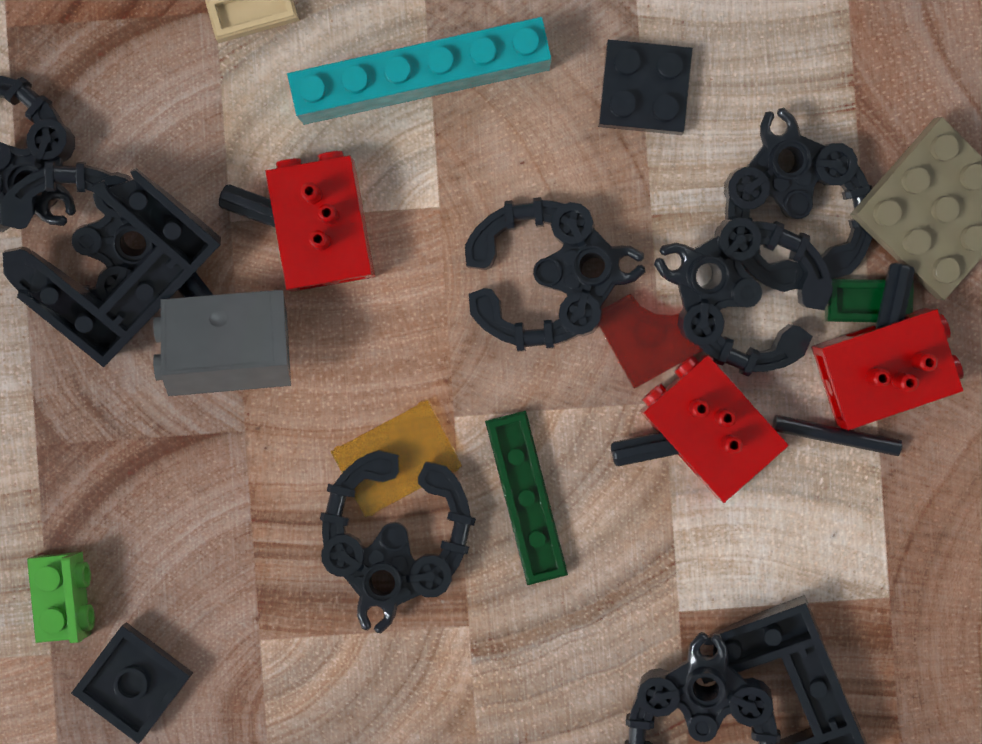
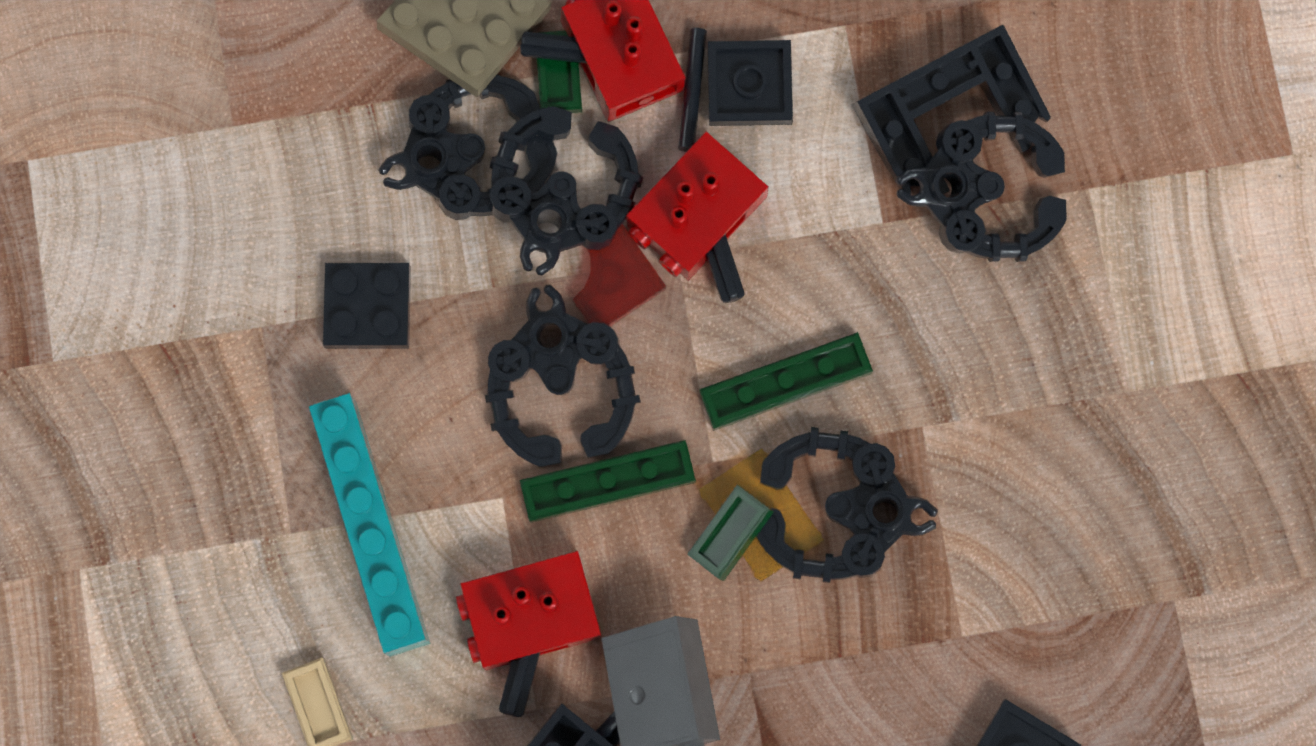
camera: 90 degrees left, 10 degrees down
(378, 427) = (730, 533): none -> tile
(444, 311) = (607, 481): none -> dark green tile
(837, 495) = (750, 83): none -> black plate

